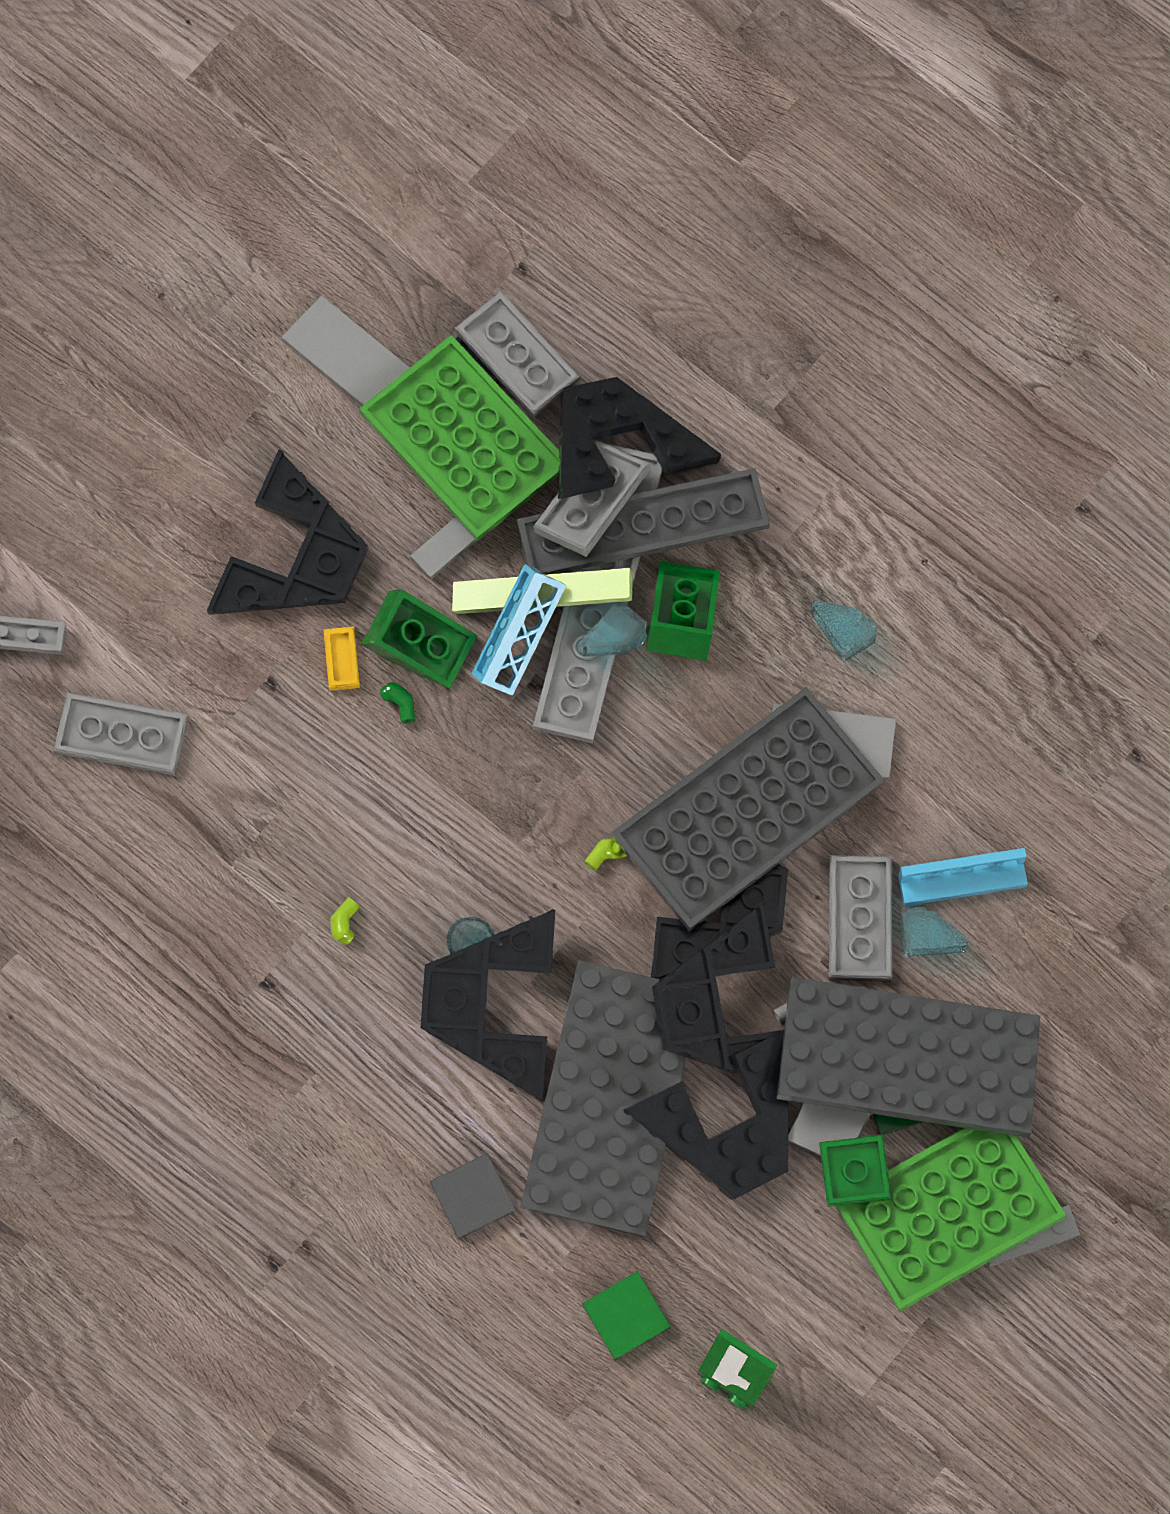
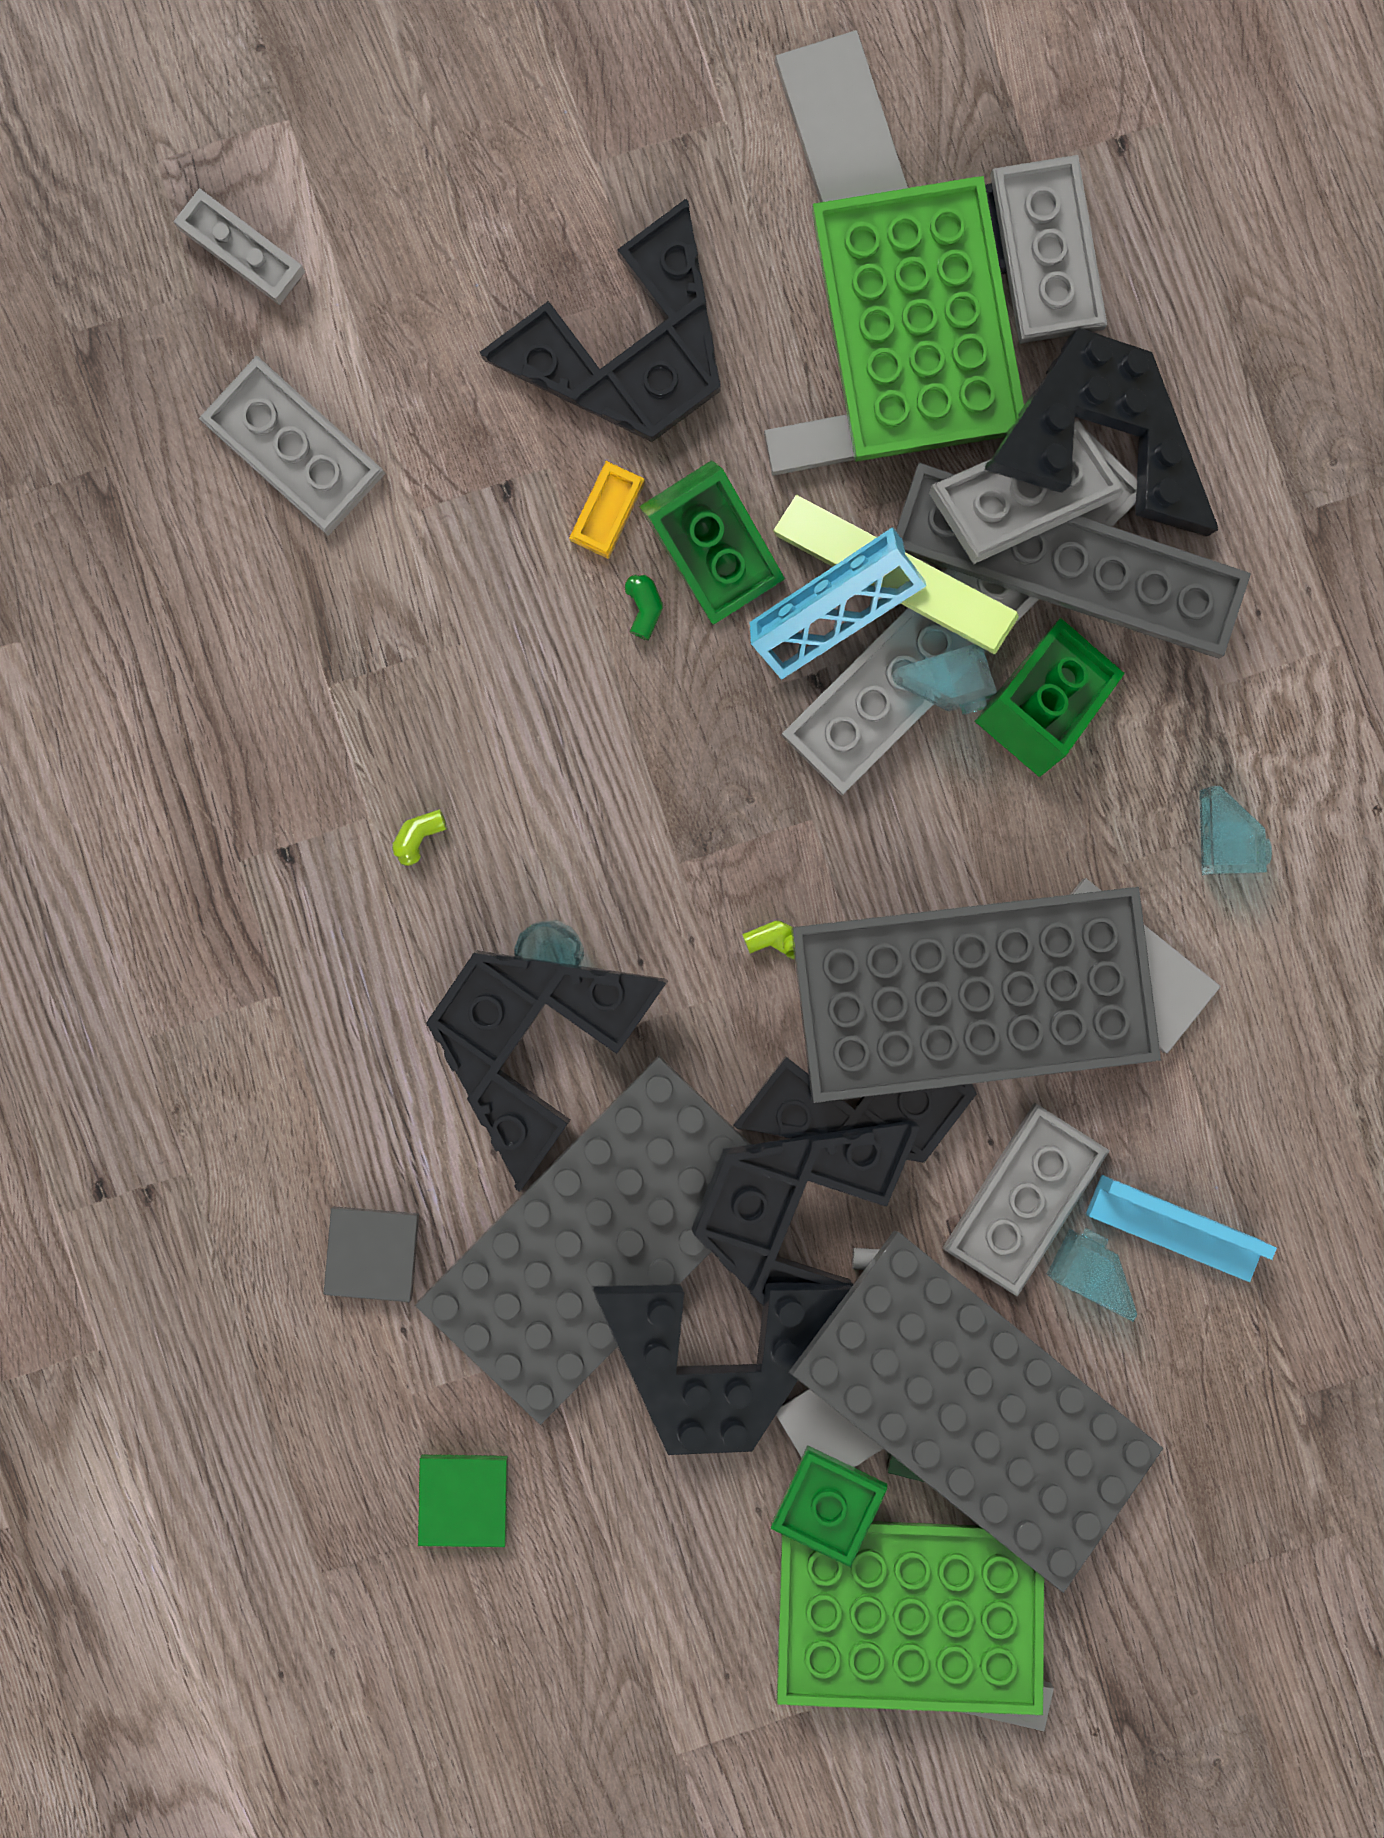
camera: 30 degrees right, 15 degrees up
(736, 1370) = (546, 1658): green slope -> none

